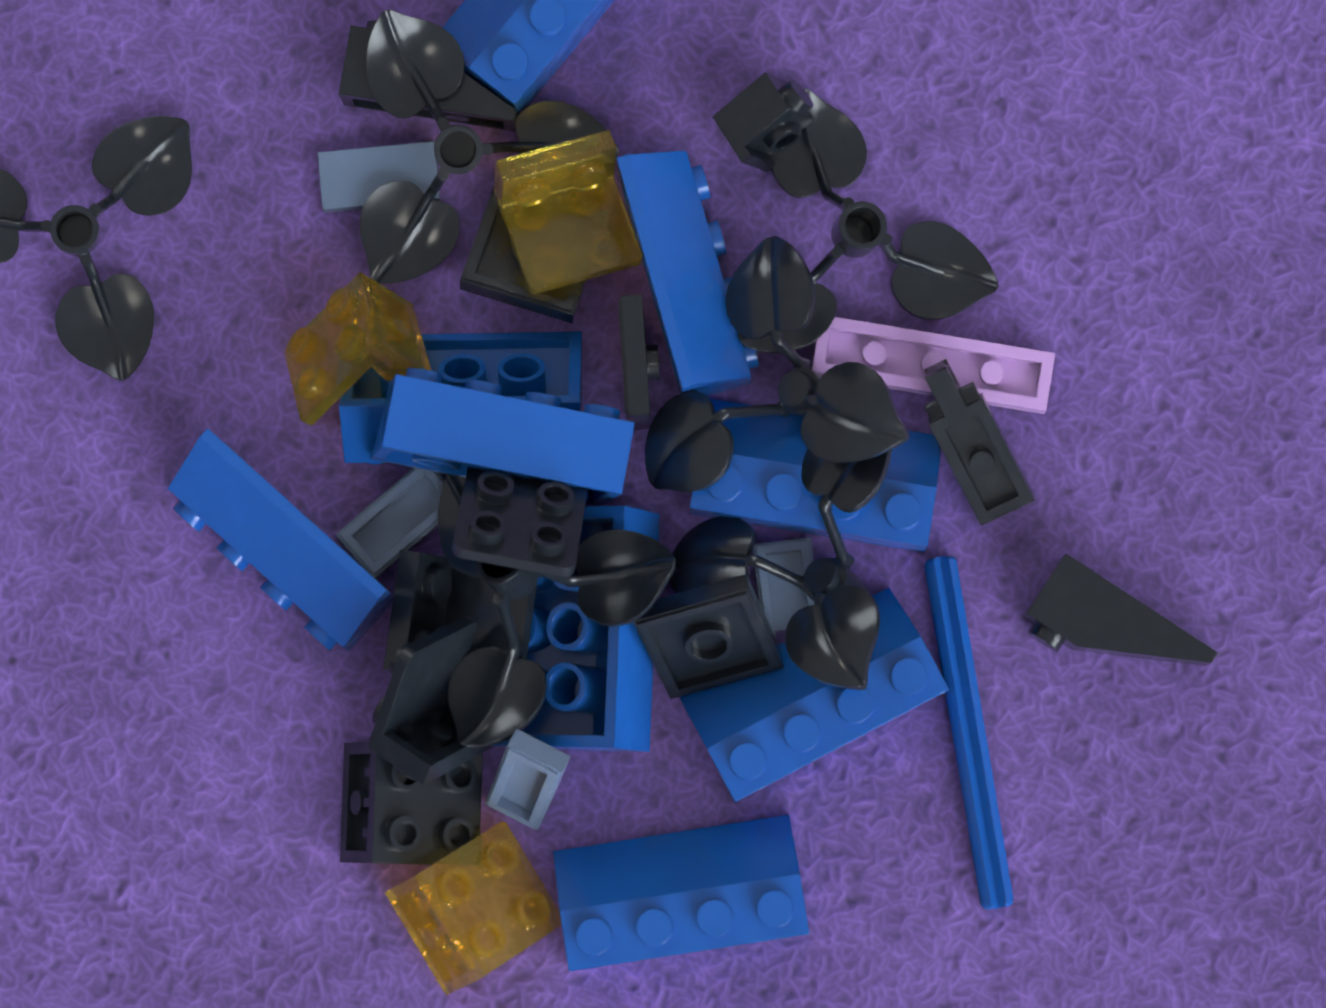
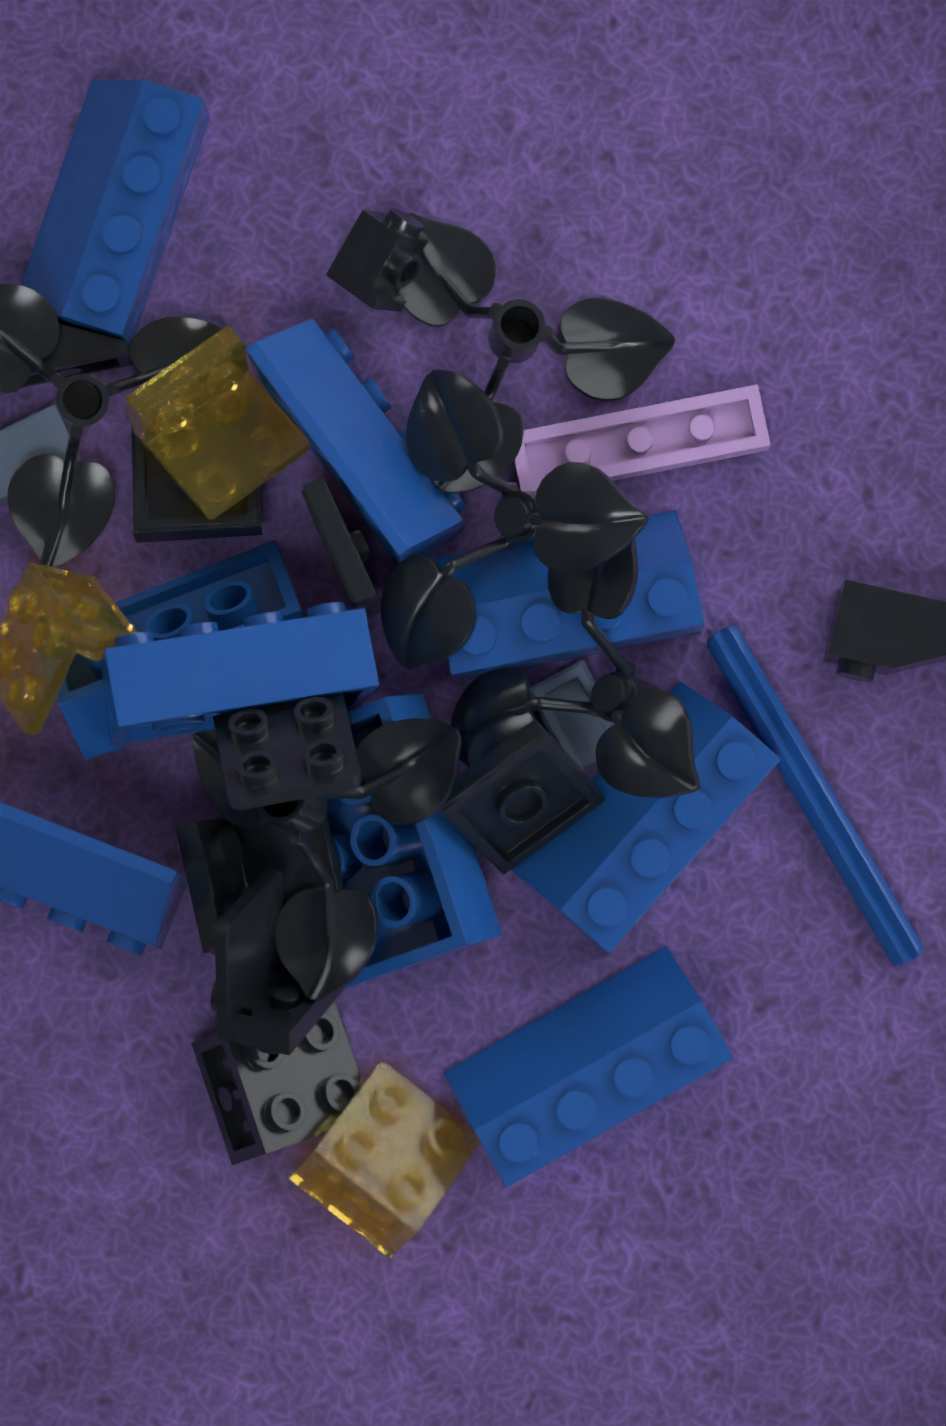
camera: 20 degrees left, 0 degrees up
(394, 521) = (158, 800): sand blue tile -> none
(527, 779) = (390, 1010): sand blue tile -> none
(975, 446) = (713, 507): black hinge -> none

